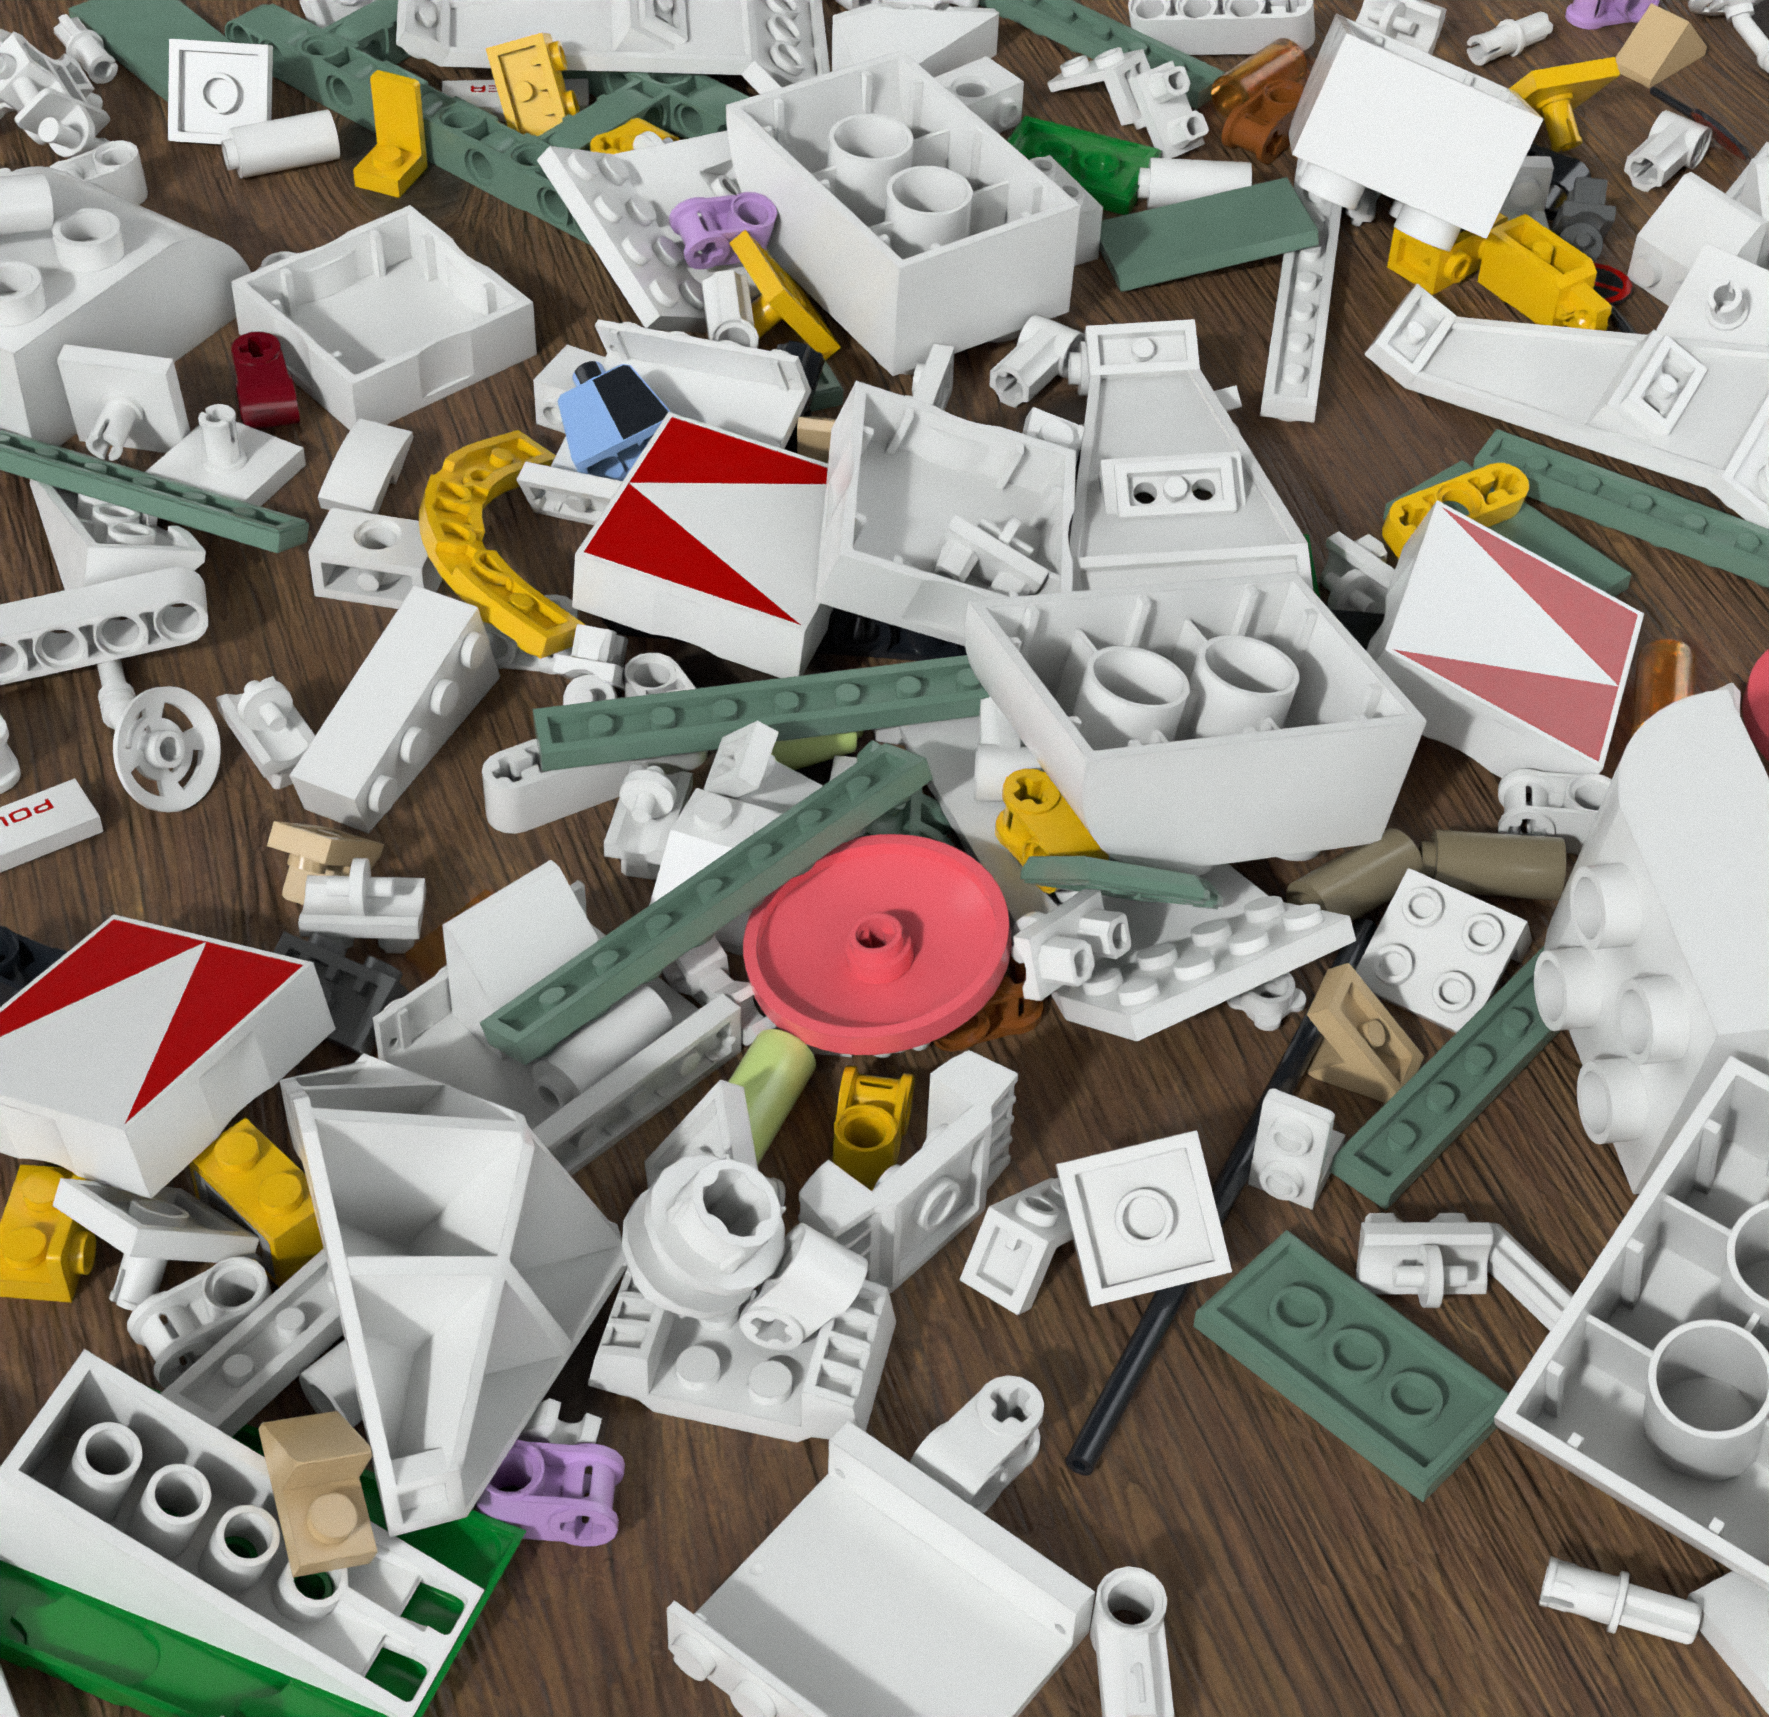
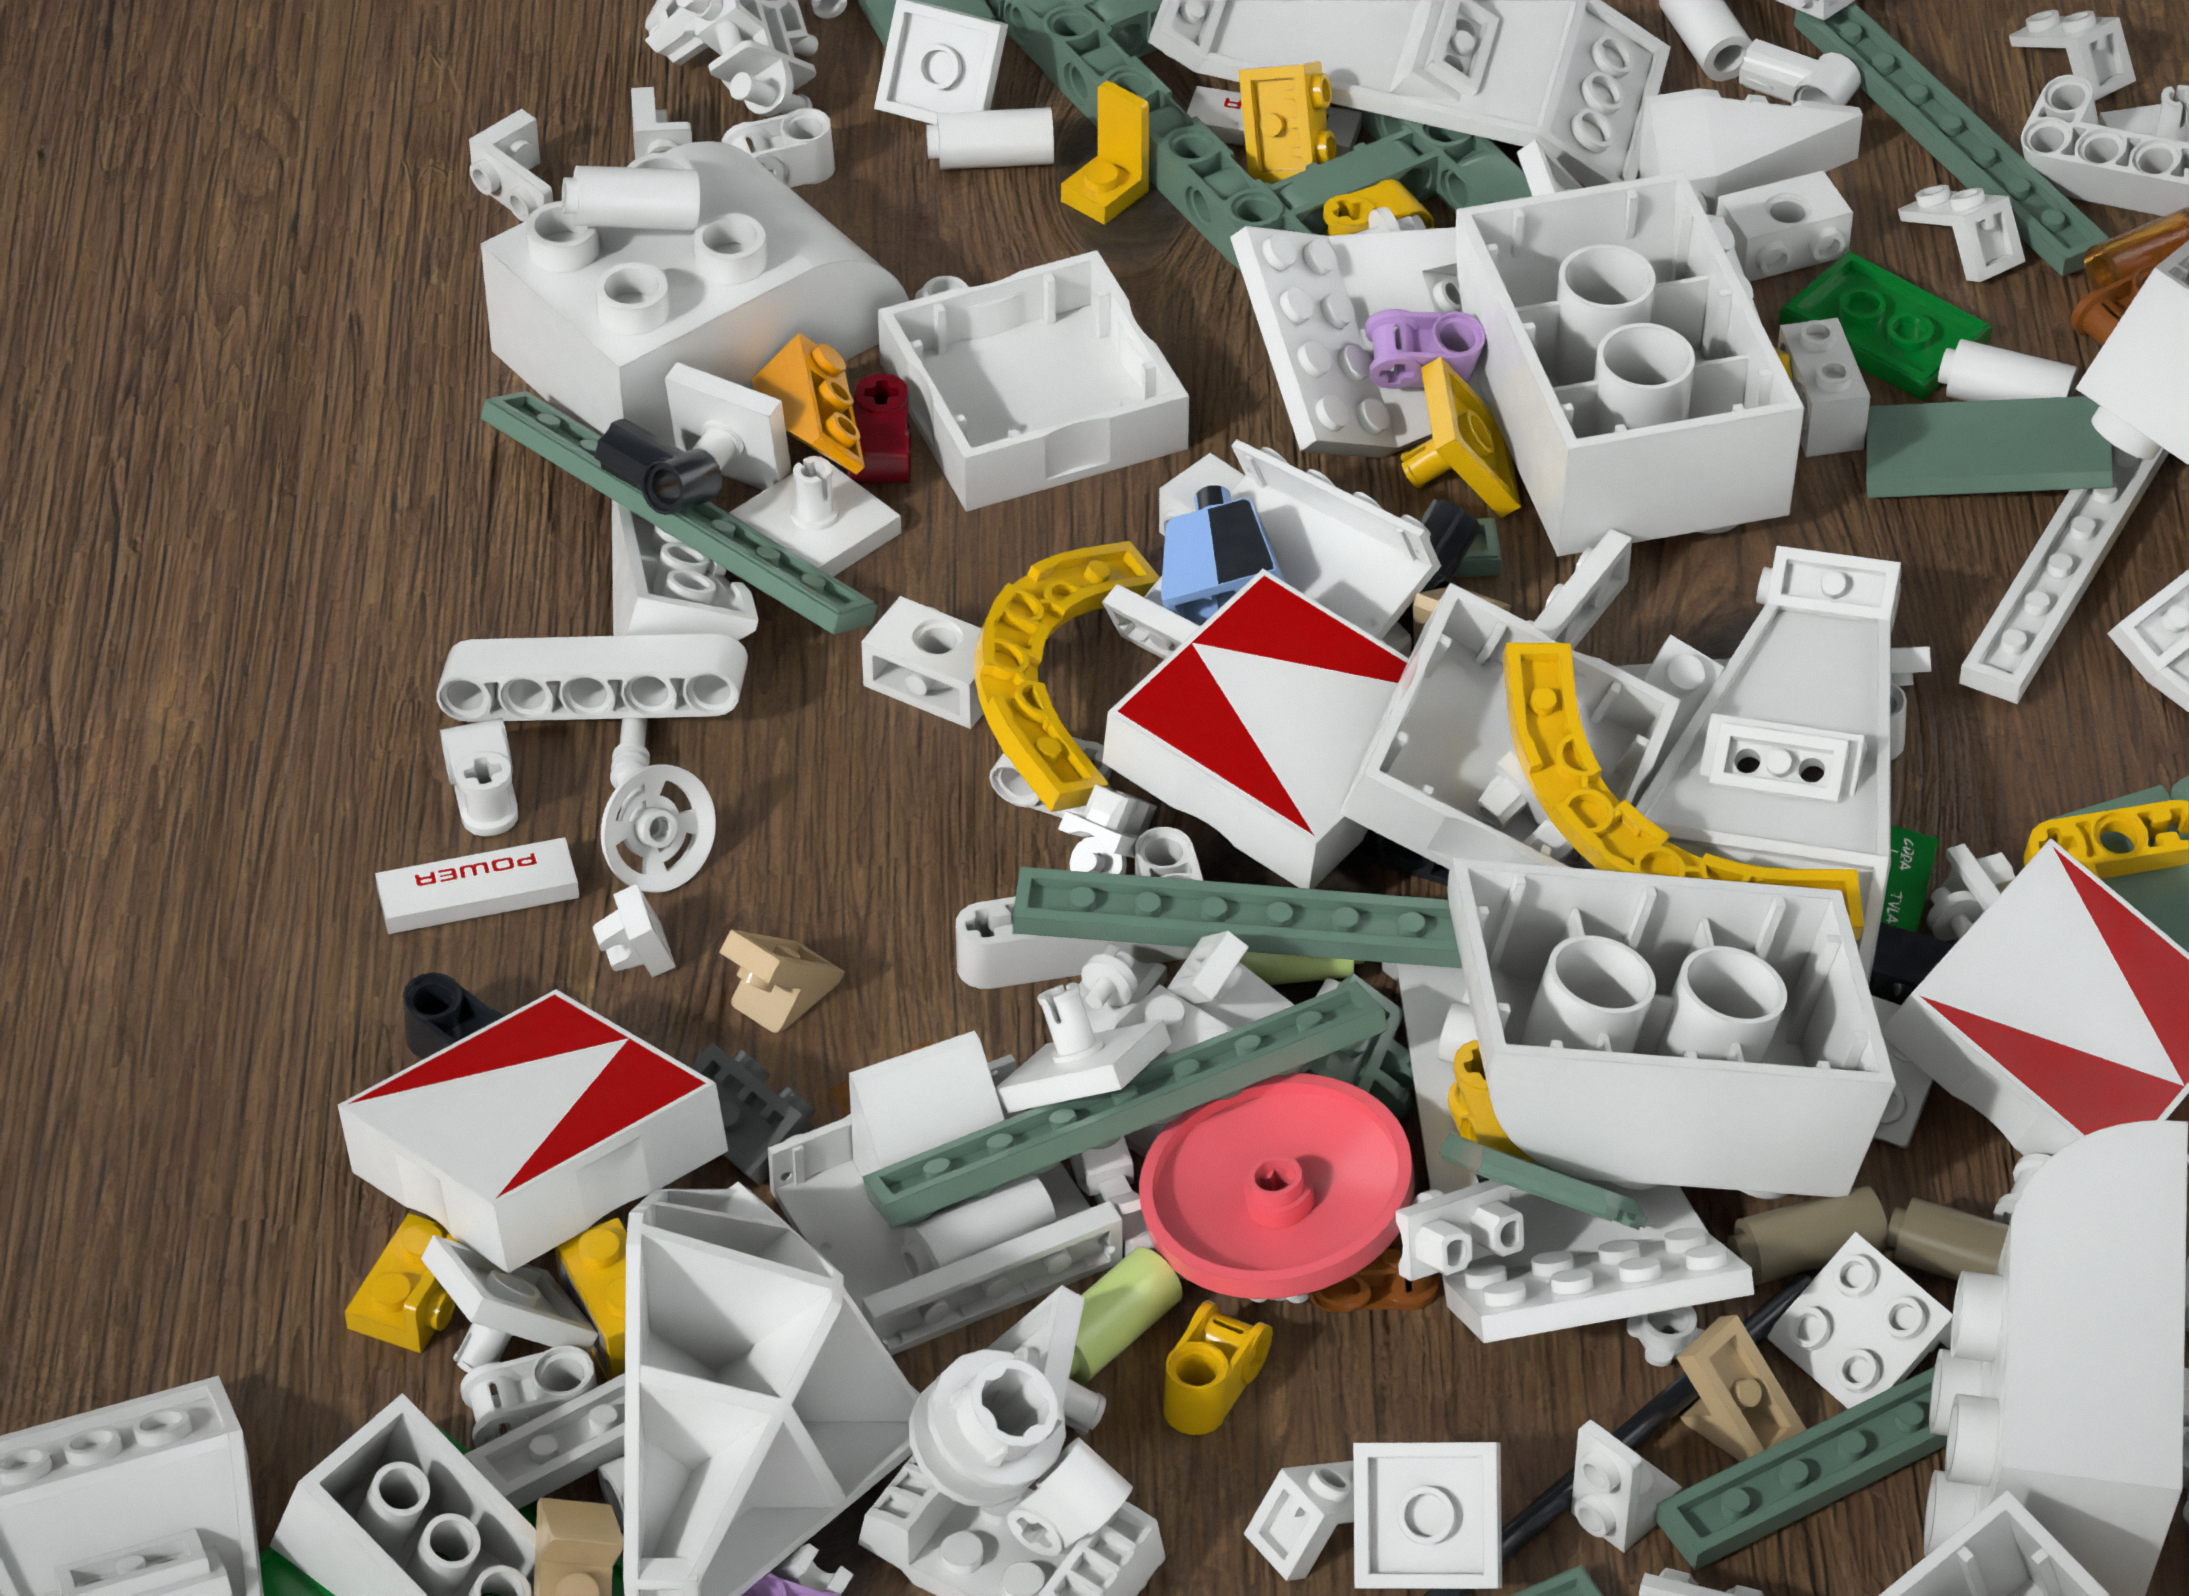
camera: 20 degrees right, 0 degrees up
(70, 439) = (664, 473): none -> black piece
(169, 852) = (634, 935): none -> white tile
(201, 363) = (814, 399): none -> light orange slope
(267, 728) = (766, 829): white hips -> none
(364, 908) = (799, 1035): white hips -> none
(365, 467) = (955, 551): white slope -> none
(397, 710) = (898, 834): white wedge -> none
(651, 868) = (1078, 1059): none -> white tile
(729, 308) = (1399, 456): white piece -> none
(934, 1192) = (1236, 1443): white plate -> none
(1014, 523) = (1585, 811): none -> yellow plate
(1035, 360) = (1725, 568): white piece -> none
(1167, 110) = (2010, 280): white hips -> none

